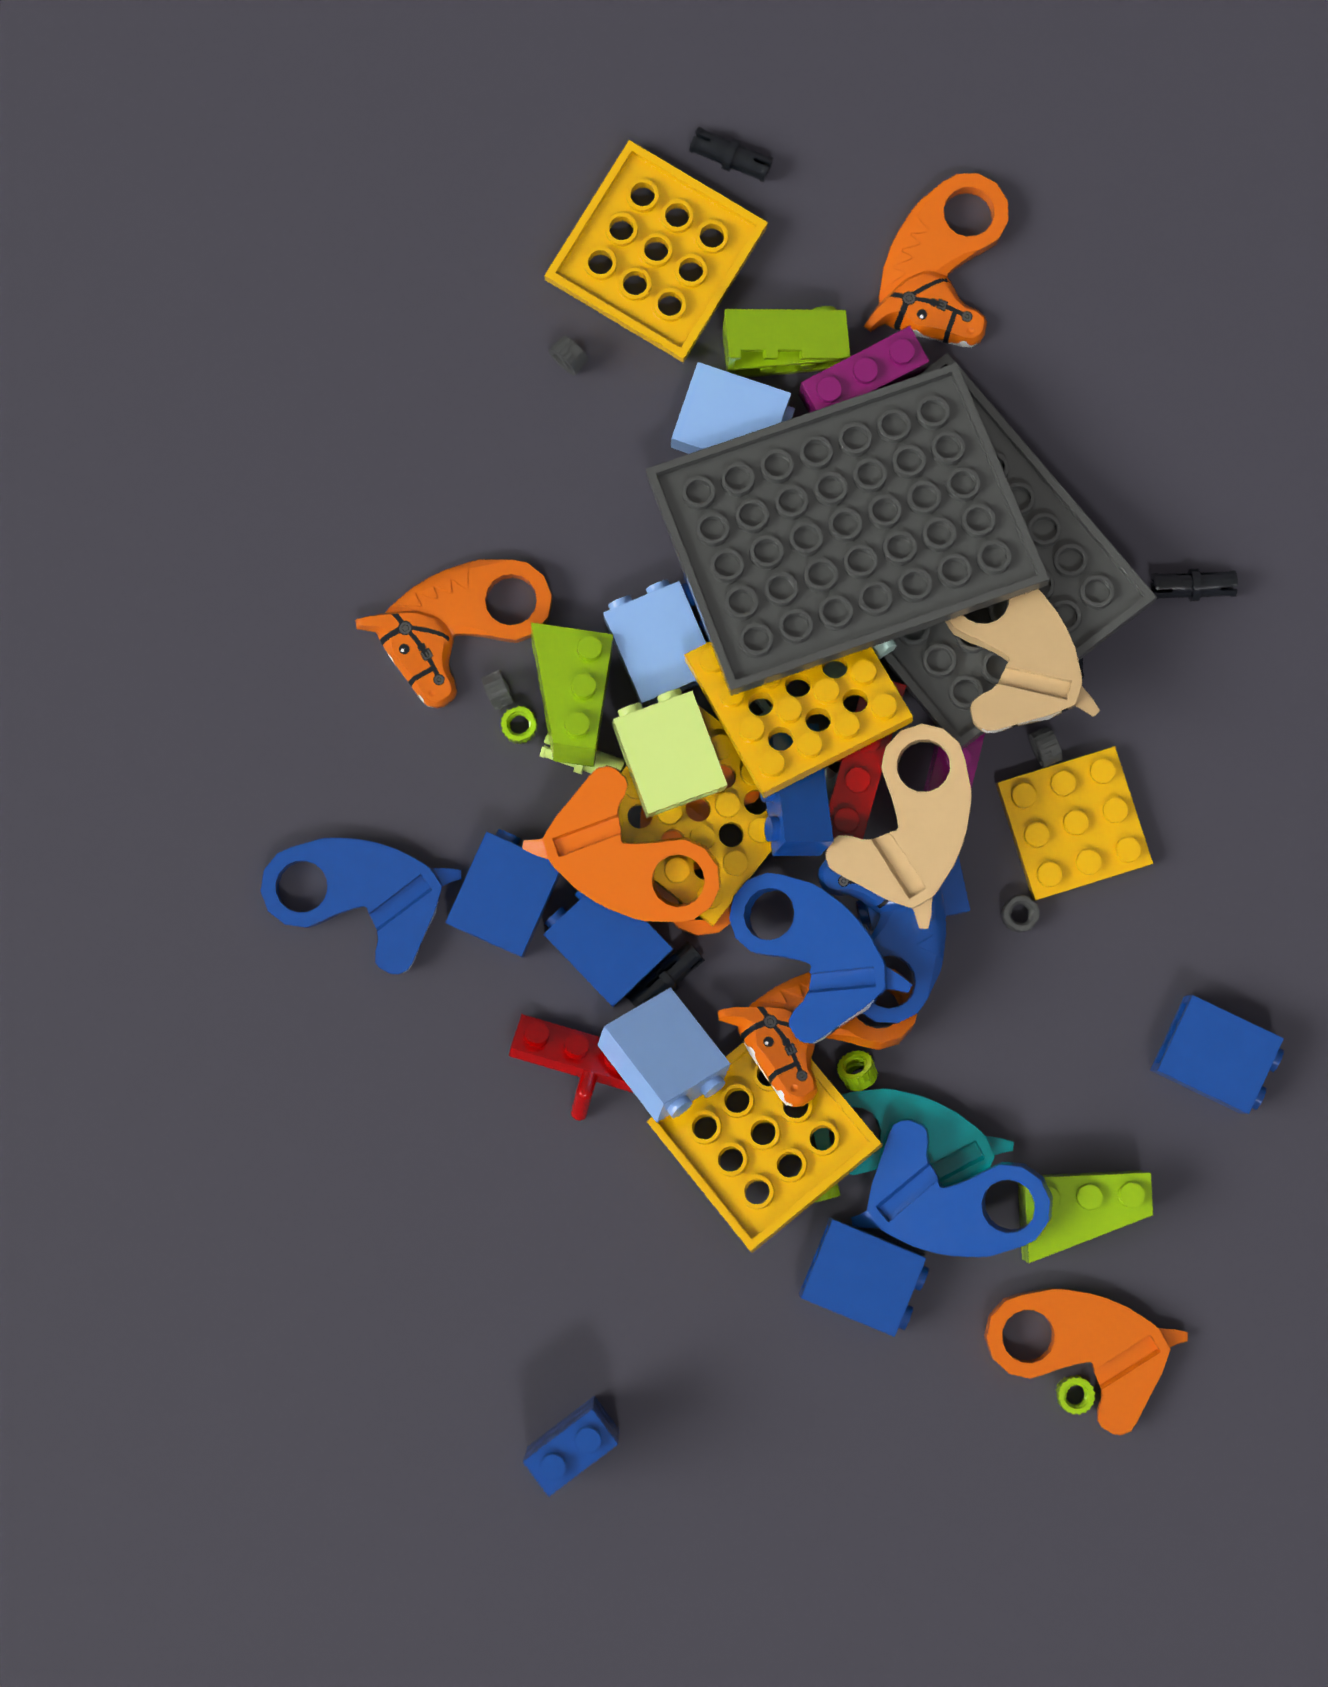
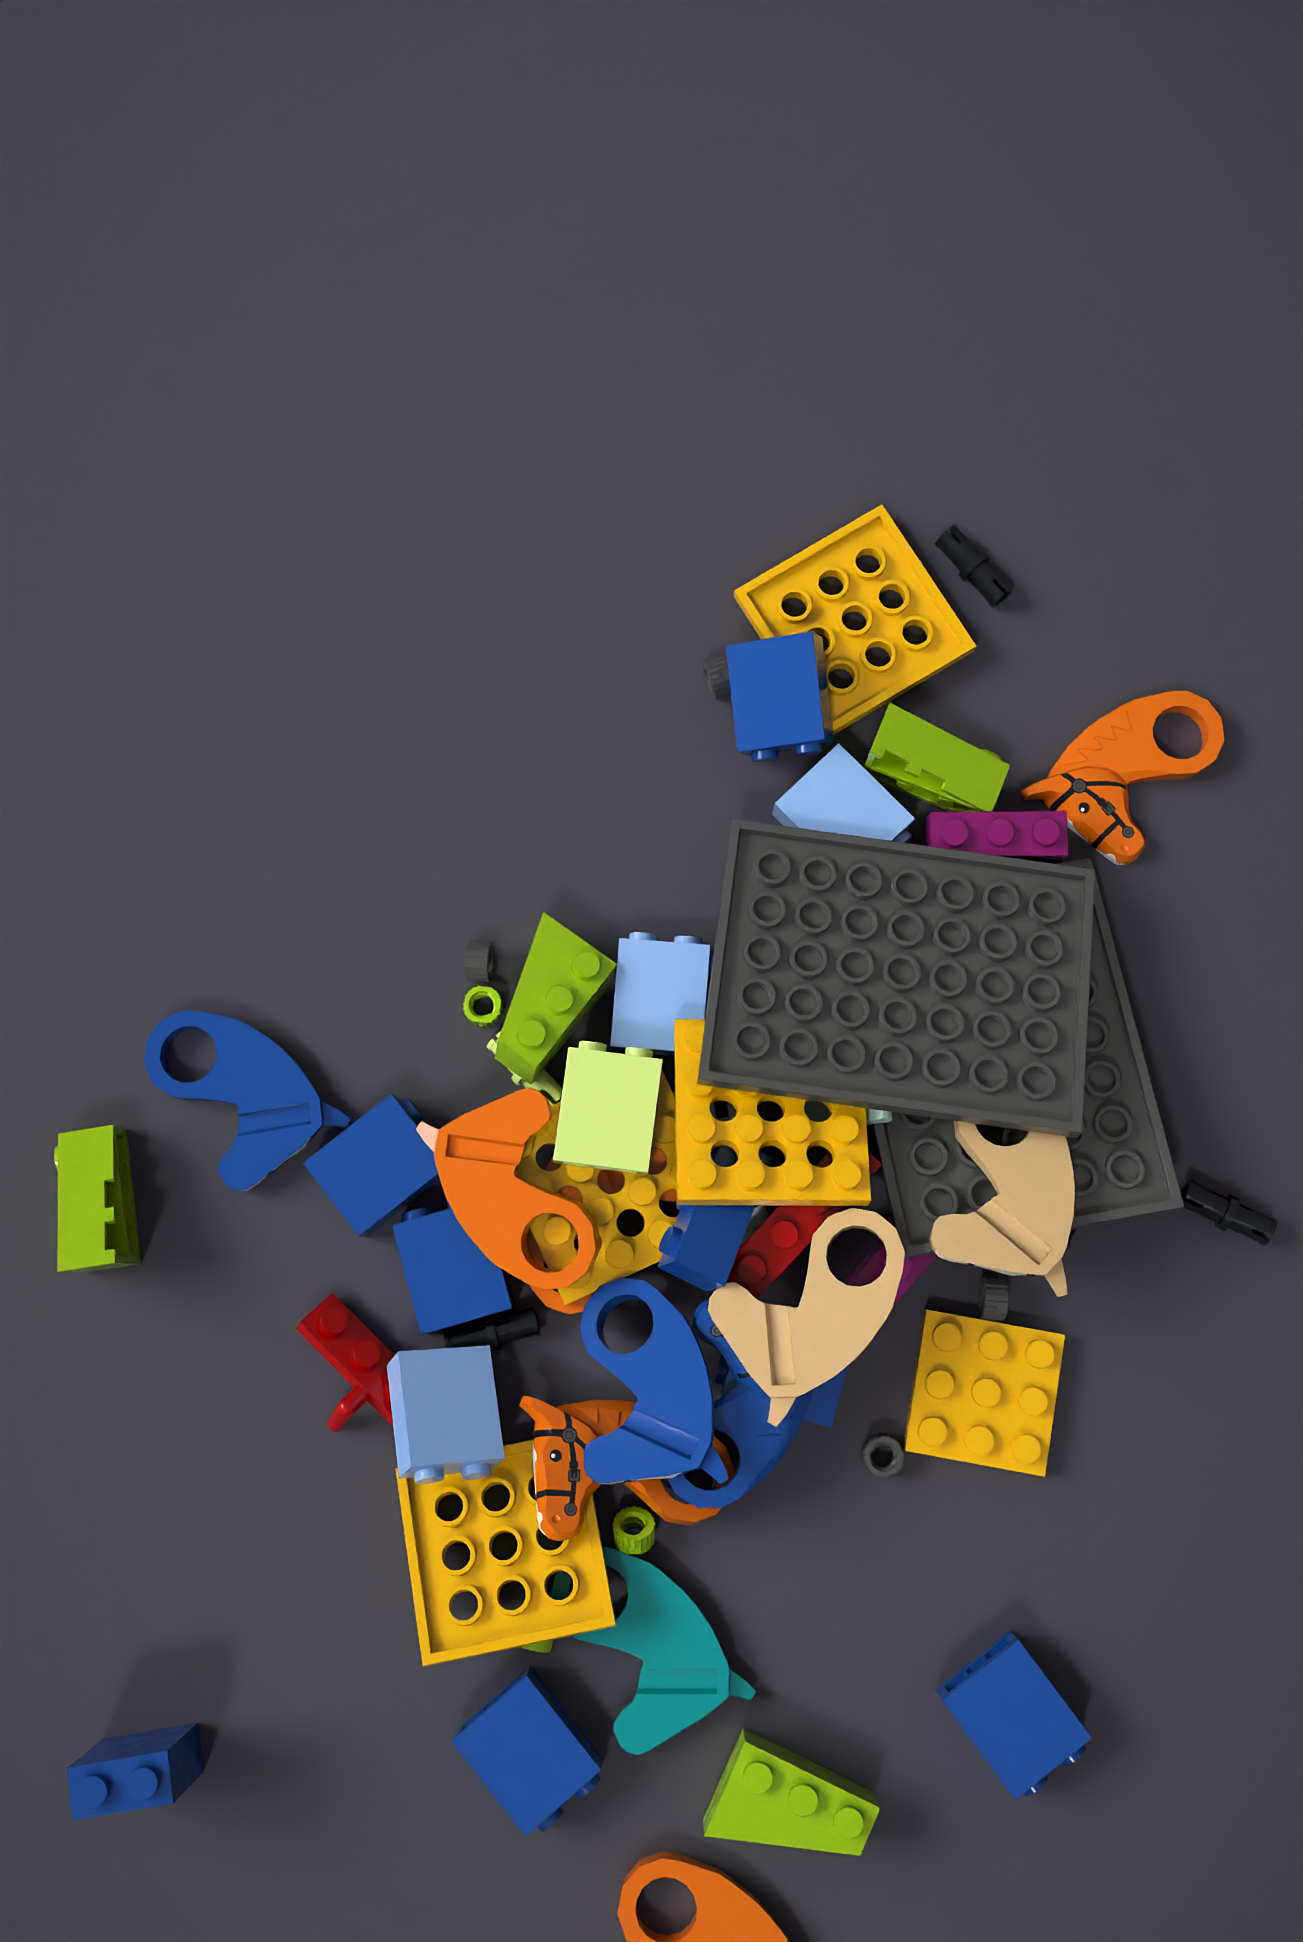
camera: 35 degrees right, 5 degrees down
(292, 1039) = (95, 1201): none -> lime wedge
(452, 603) = (476, 855): orange animal -> none
(630, 346) = (780, 696): none -> blue brick
(942, 1219) = (649, 1742): blue animal -> none

